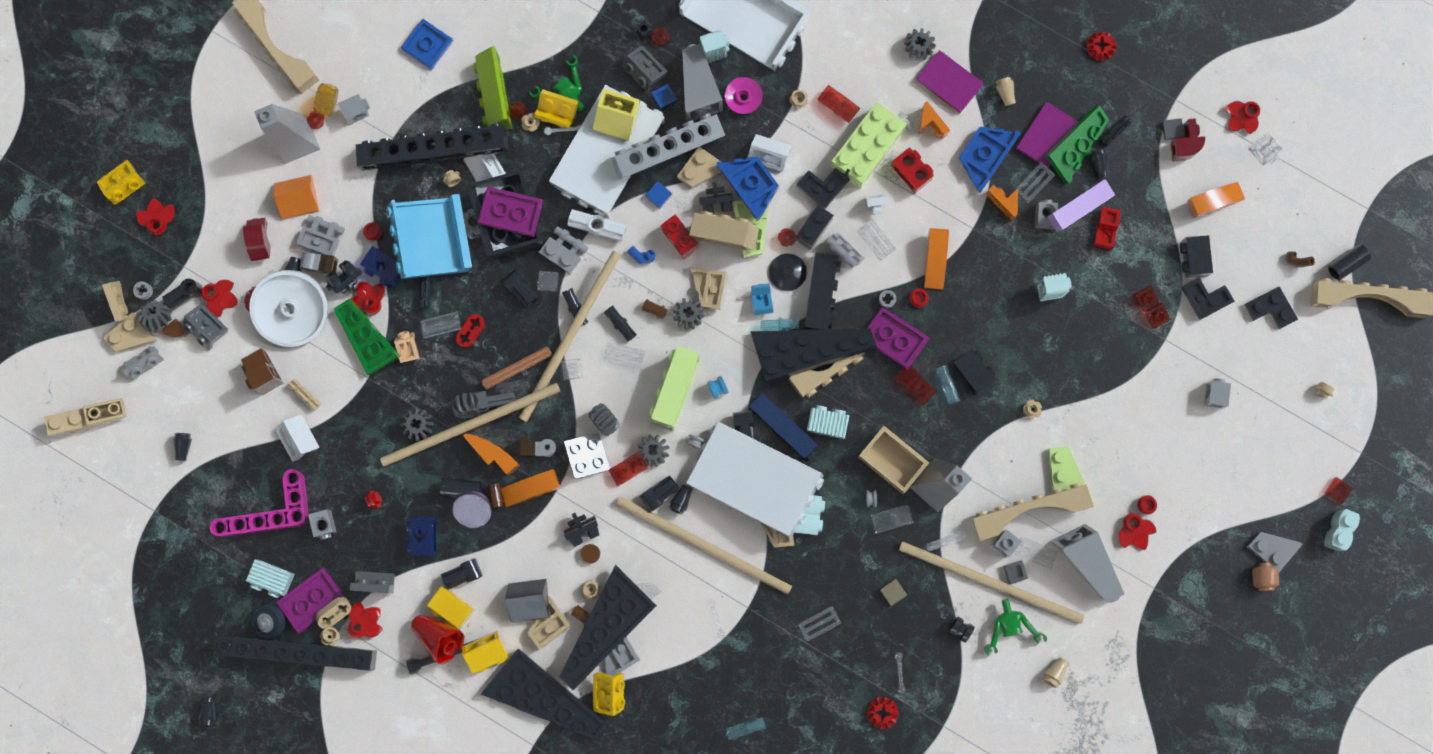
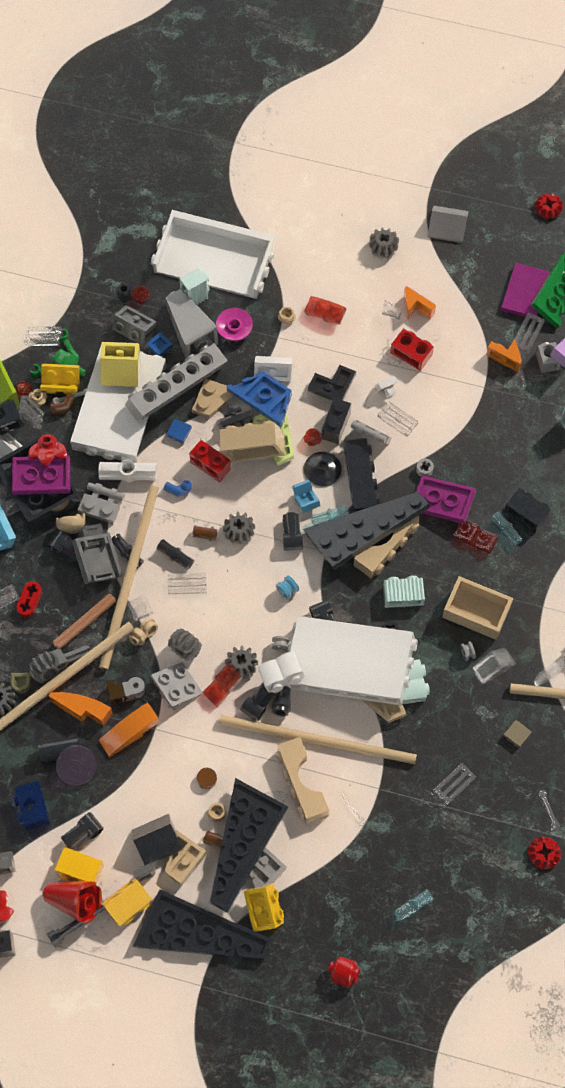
camera: 20 degrees left, 15 degrees down
(442, 412) = (20, 682): none -> olive tile
(495, 497) = (95, 747): reddish brown pin -> none
(508, 629) = (144, 872): none -> dark grey tile
(522, 190) = (47, 451): none -> red plate
(524, 143) = (31, 412): none -> clear tile
(528, 265) = (71, 524): none -> tan hair
(544, 312) = (97, 563): none -> dark grey container
(551, 140) = (62, 407): none -> reddish brown arm
(562, 398) = (137, 637): none -> tan plate
(563, 62) = (41, 338): none -> clear tile
(575, 391) = (149, 627): none -> tan plate
(582, 525) = (198, 750): black hips -> none
(675, 388) = (245, 596): yellowish green piece -> none
(679, 607) = (311, 803): none -> tan arch
(685, 475) = (281, 672): none -> white brick
(710, 287) = (252, 499): tan wing -> none
(737, 336) = (292, 537): none -> black piece
(783, 426) = (362, 606): dark blue tile -> none
(868, 144) = (364, 337): yellowish green piece -> none
(919, 298) = (454, 459): red plate -> none
(936, 258) = (459, 419): orange slope -> none
(940, 483) = (530, 615): light grey slope -> none
(949, 81) = (421, 267): magenta tile -> none
(986, 153) = (475, 319): blue wing -> none
(991, 39) = (447, 224): none -> light grey slope
(1006, 90) = (475, 261): tan cone -> none

